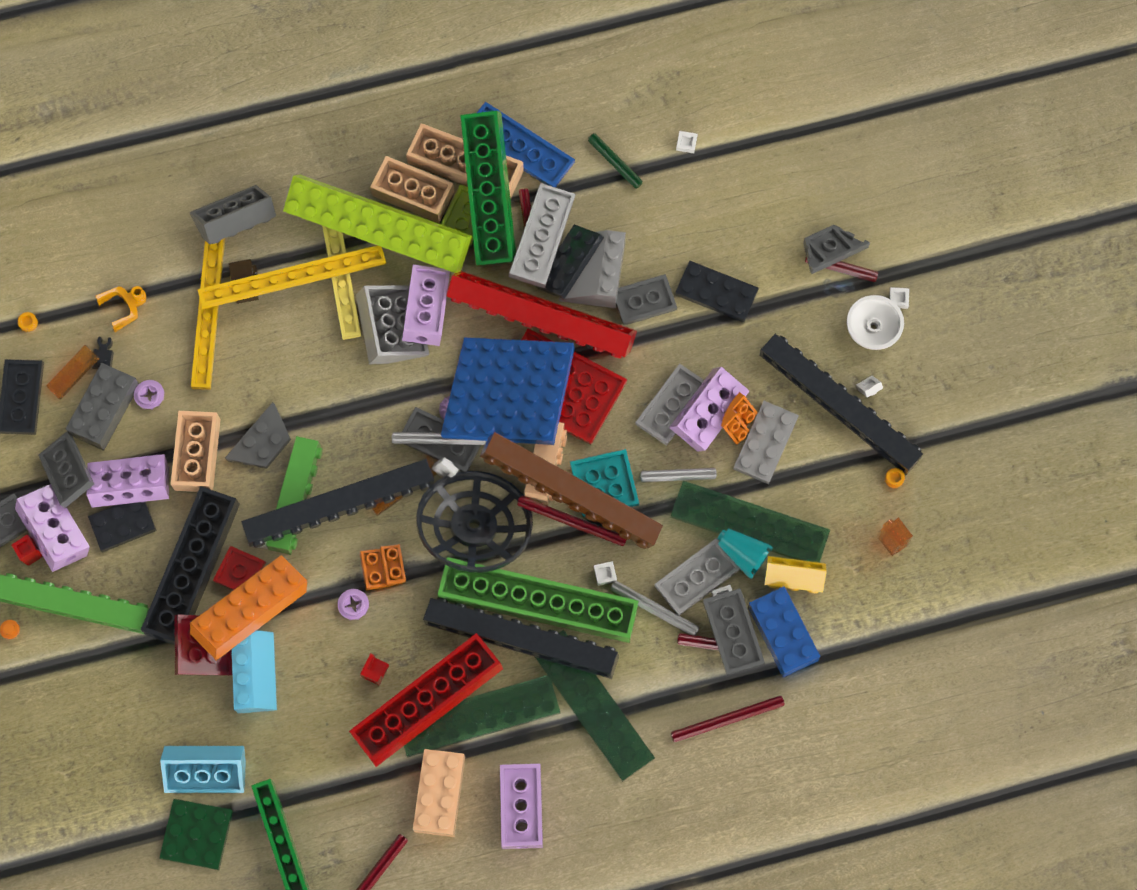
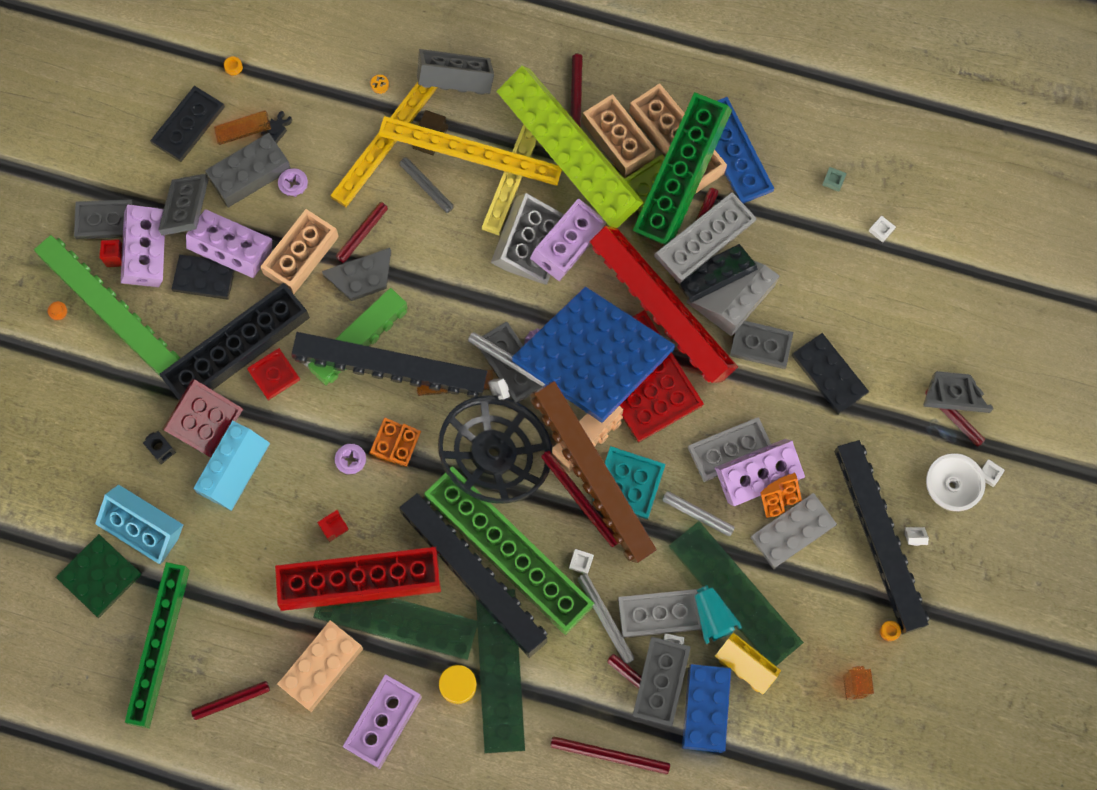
camera: 25 degrees right, 0 degrees up
(132, 300) = (329, 96): light orange piece -> none
(171, 263) = (379, 84): none -> light orange tile
(186, 696) = (164, 452): none -> black brick
(238, 403) = (362, 232): none -> dark red axle
(248, 607) = (258, 408): orange brick -> none
(269, 328) = (426, 185): none -> dark grey axle
(348, 167) = (576, 88): none -> dark red axle
(564, 737) = (457, 684): none -> yellow head
(615, 160) = (809, 210): dark green axle -> none
(620, 121) = (834, 179): none -> sand green plate

